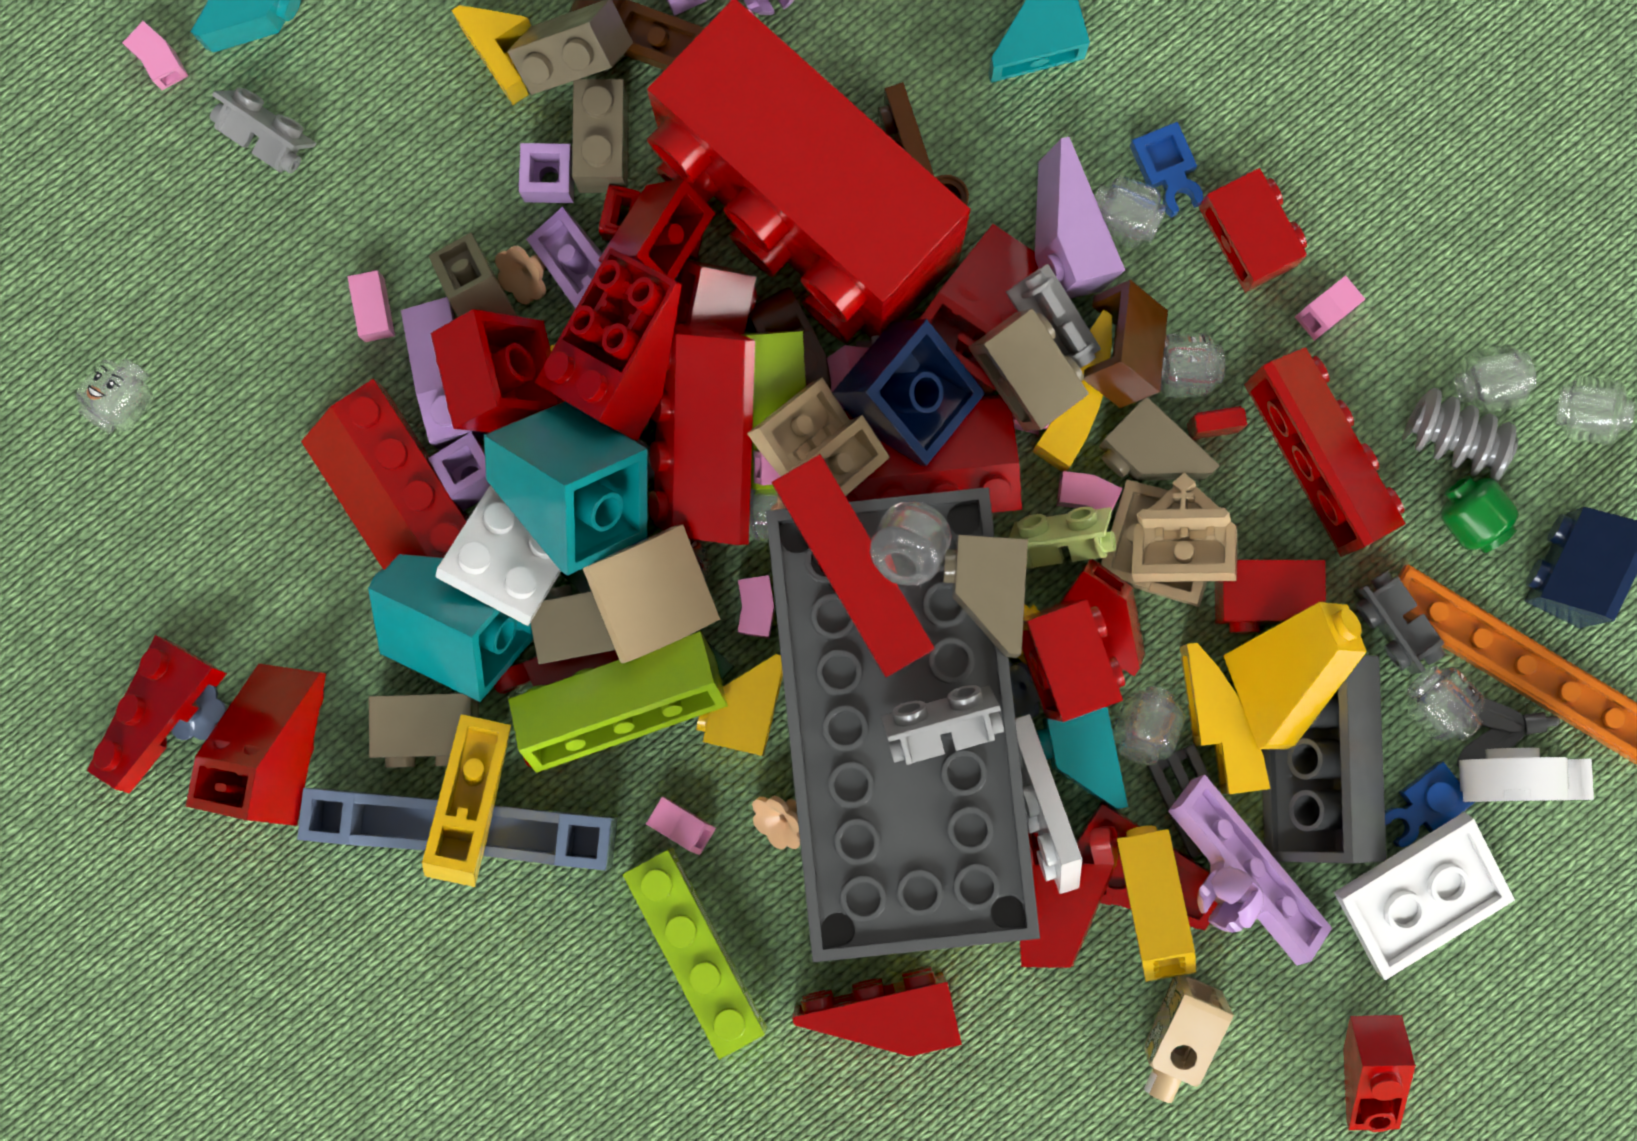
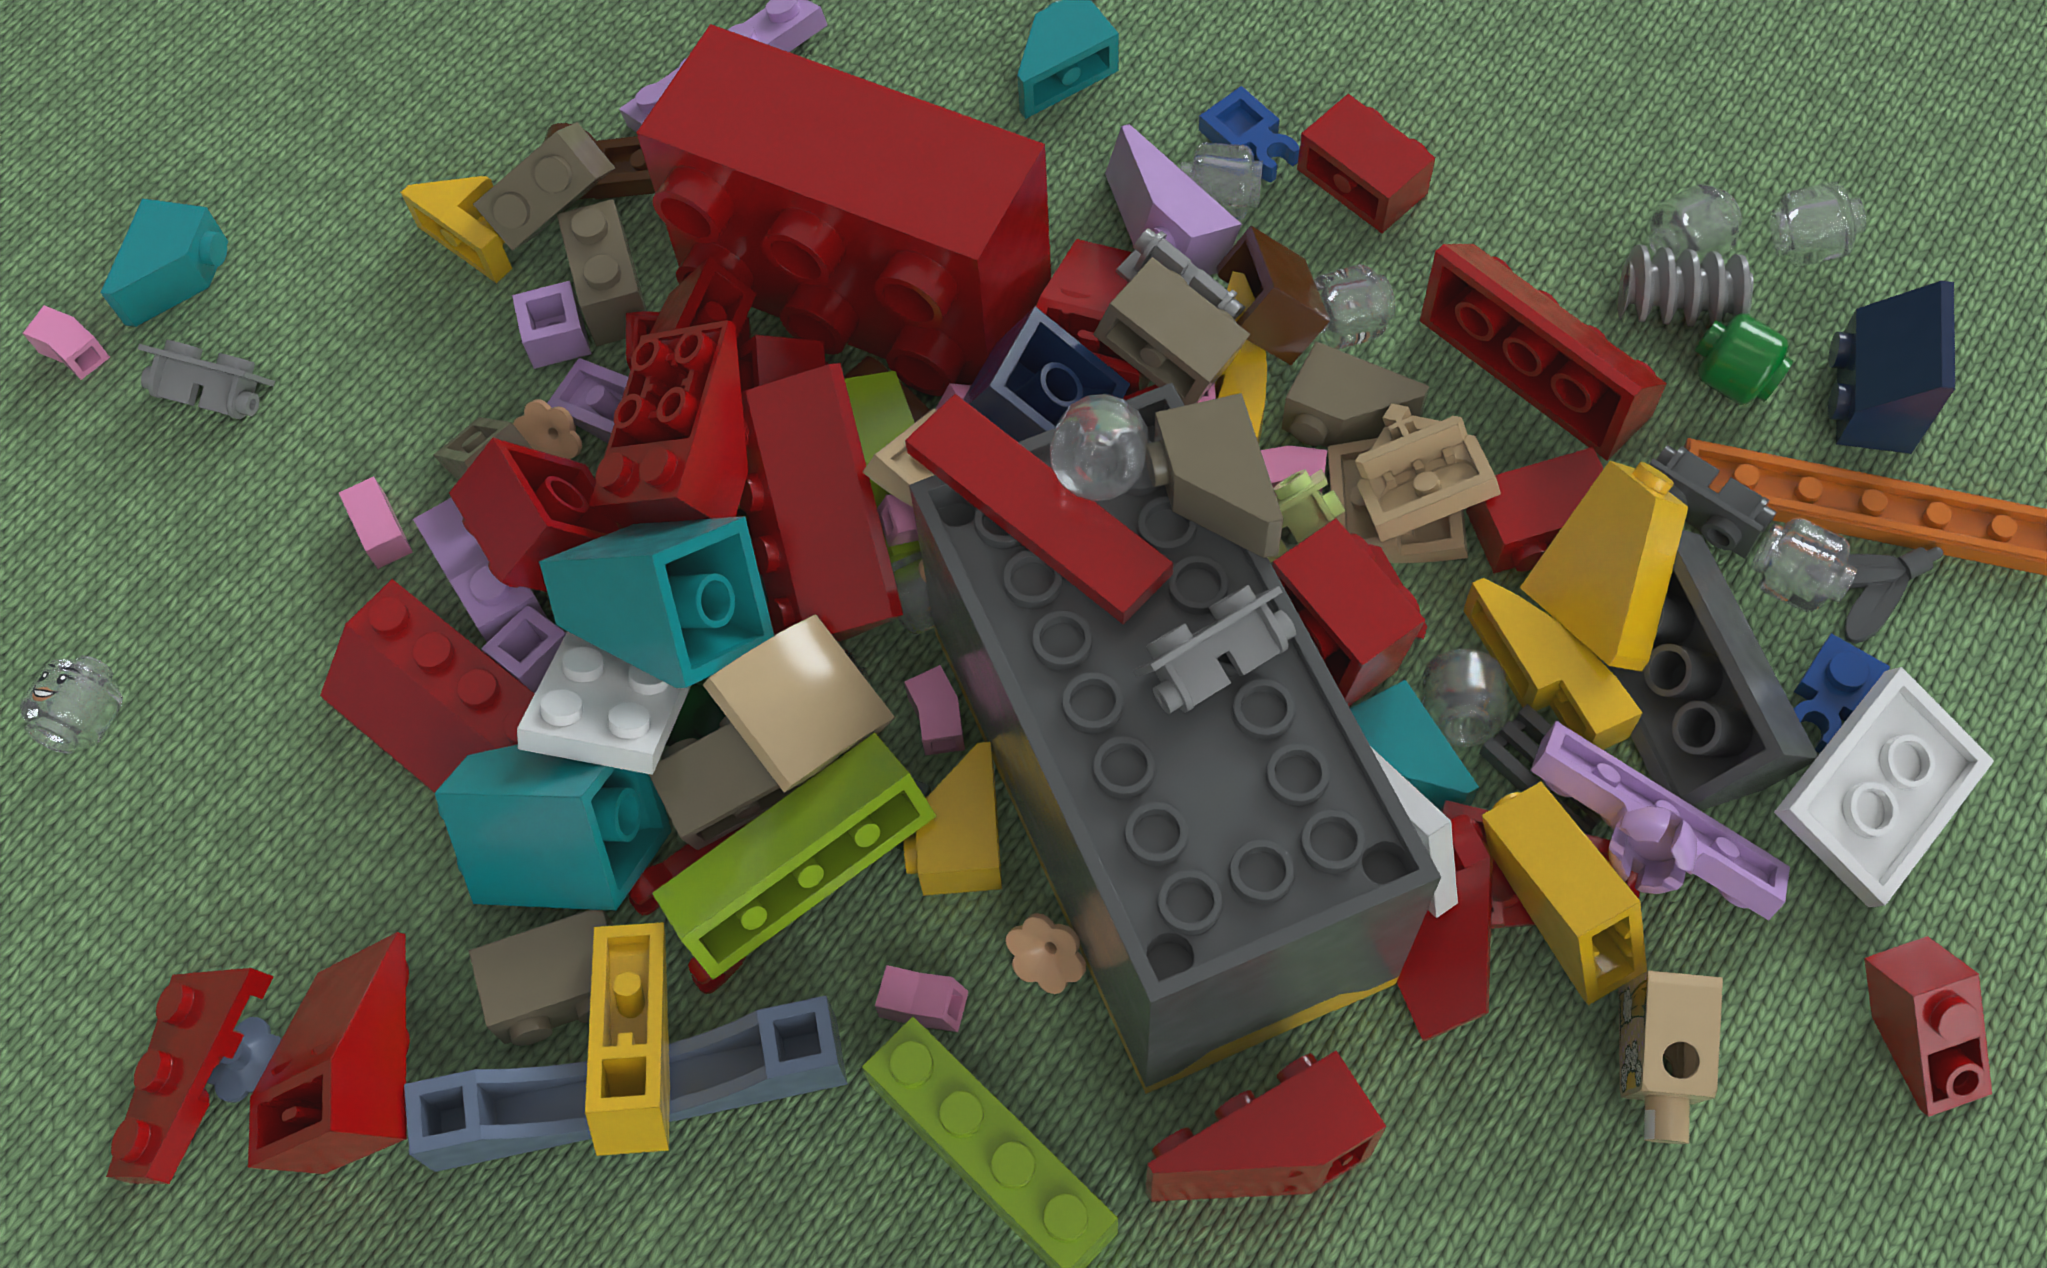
camera: 20 degrees left, 20 degrees down
(1217, 423) = (1411, 351): red tile -> none
(1330, 308) = (1482, 212): bright pink piece -> none
(1525, 776) = (1935, 600): white piece -> none

